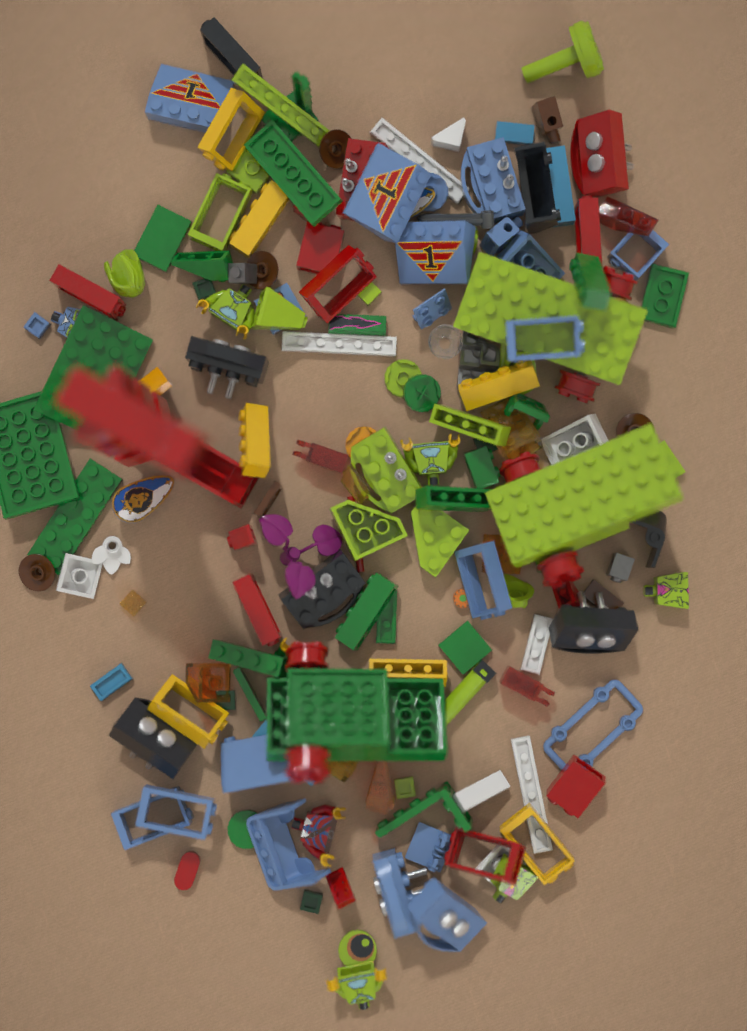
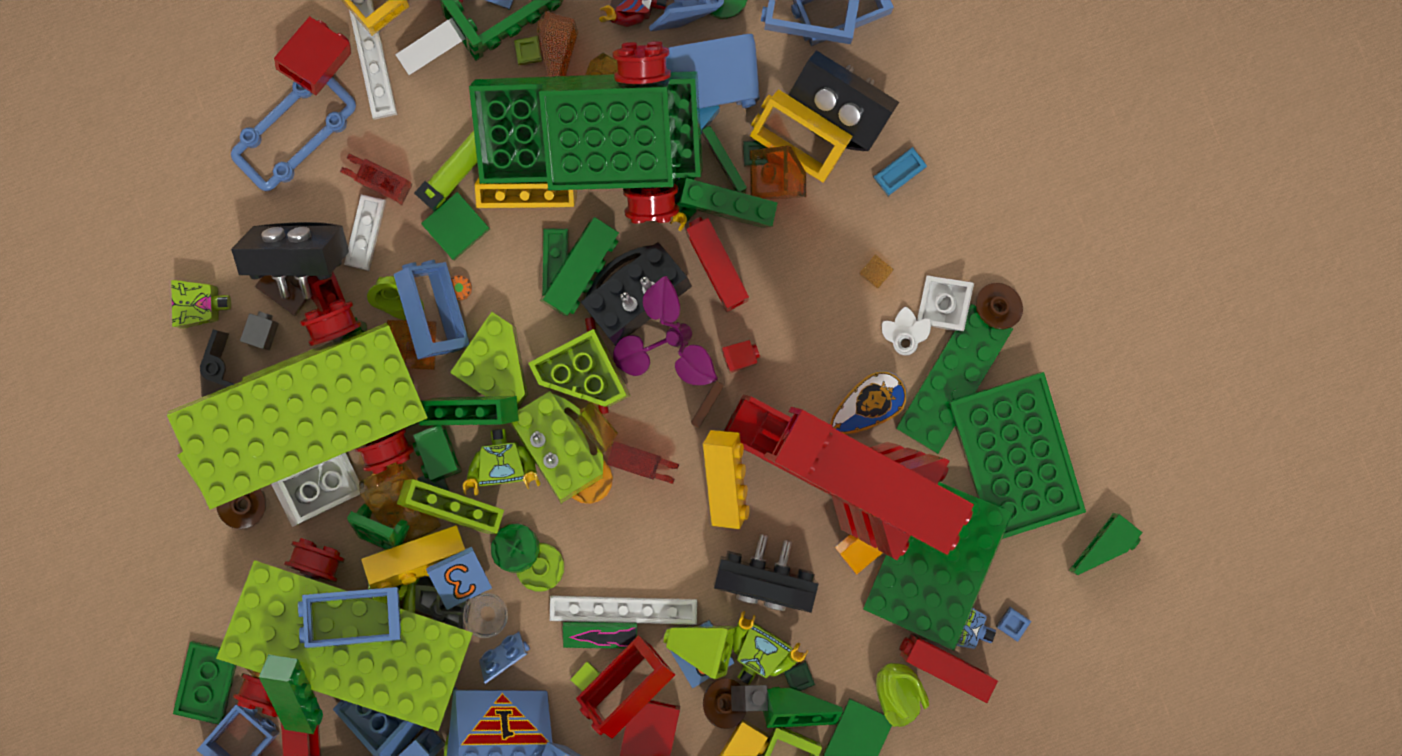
camera: 175 degrees left, 0 degrees up
(464, 370) = (459, 578): none -> medium blue tile

